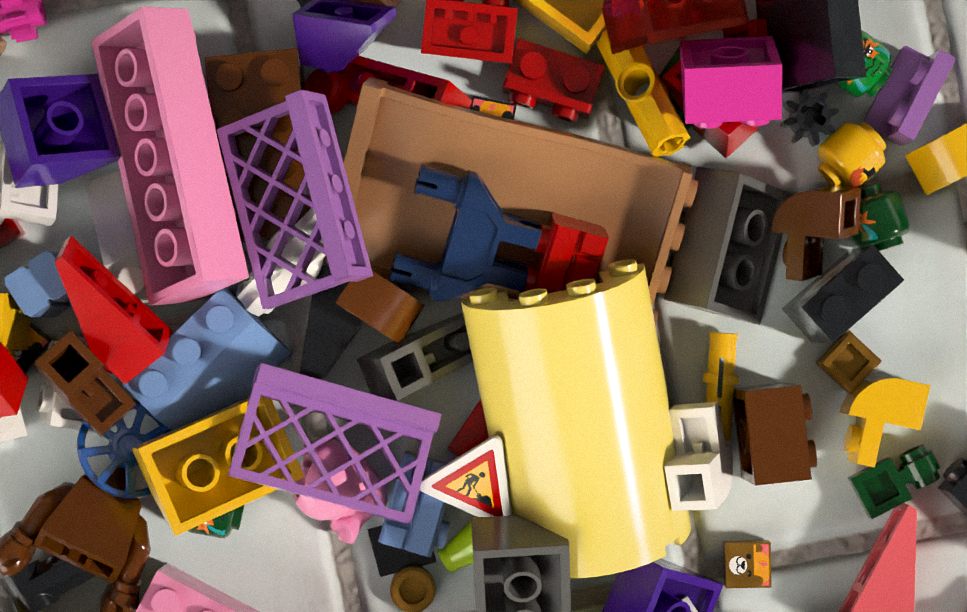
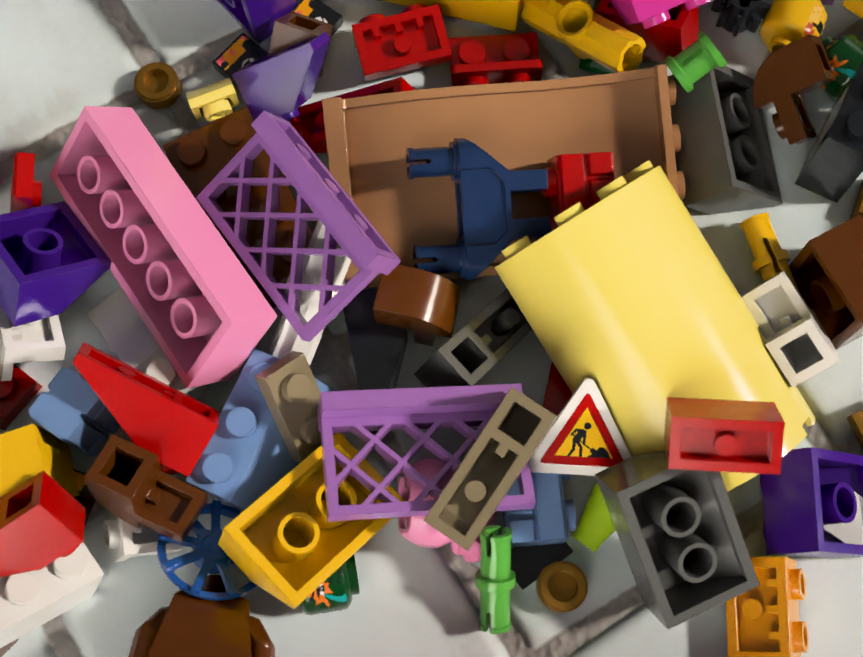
camera: 20 degrees left, 15 degrees down
(62, 51) = (25, 190): none -> red plate
(239, 351) = (293, 402): none -> dark tan plate
(267, 24) = (213, 100): none -> light yellow slope
(356, 565) = (495, 579): none -> bright green pin
(383, 483) = (490, 468): none -> dark tan slope
(582, 539) = (723, 435): none -> red panel
(707, 178) = (695, 61): none -> bright green bush

